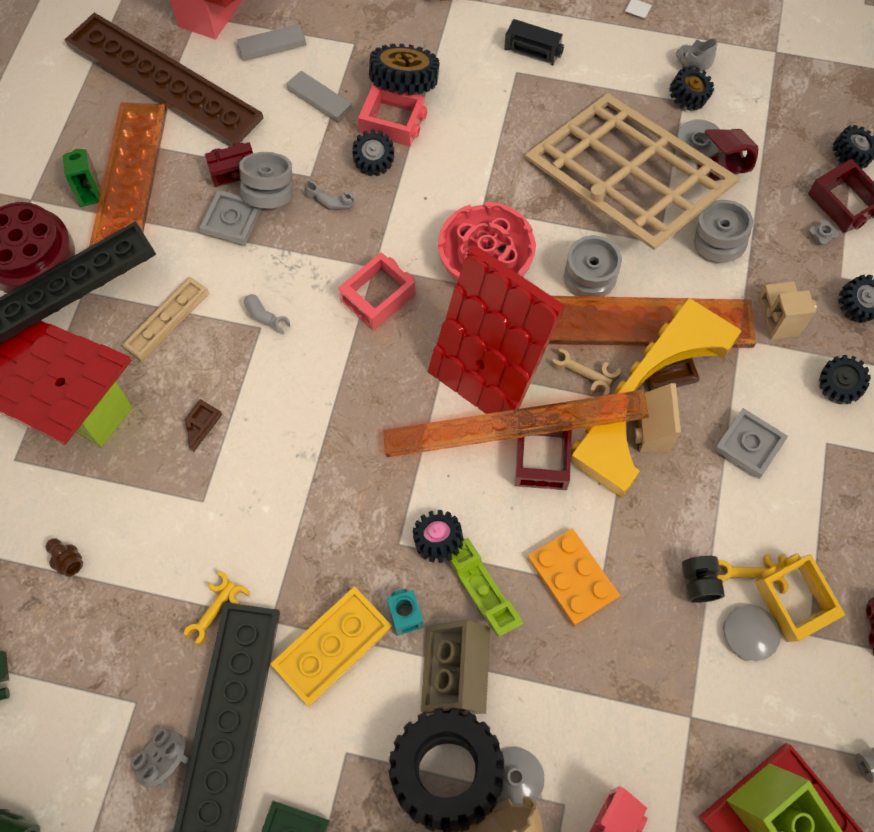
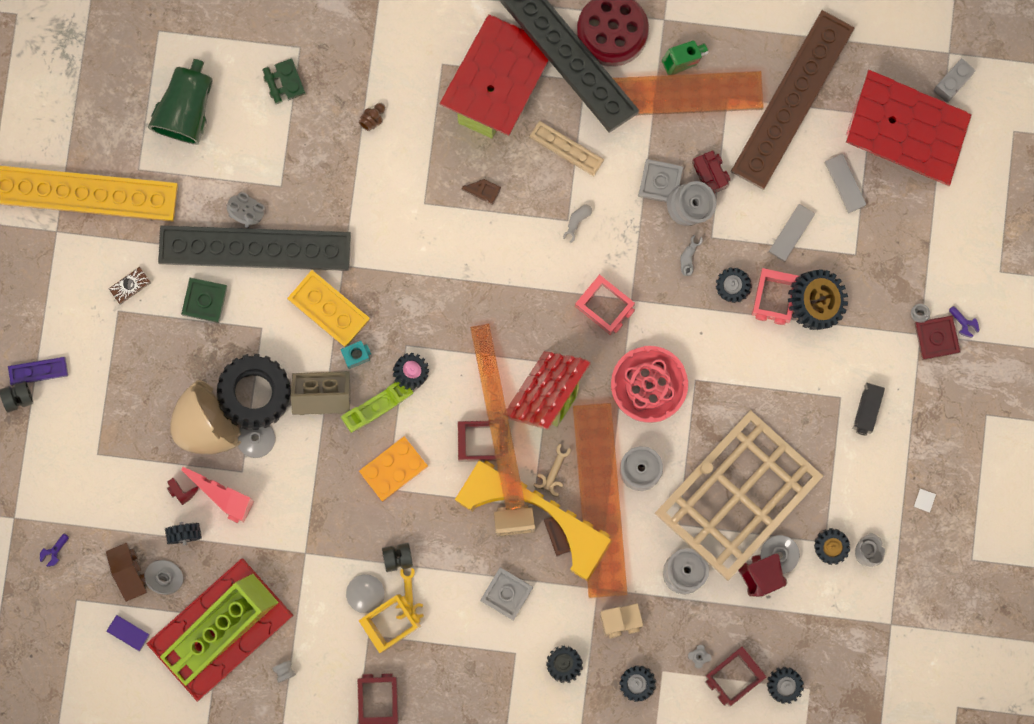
camera: 85 degrees right, 15 degrees up
(226, 592) = (360, 233): yellow bar -> none

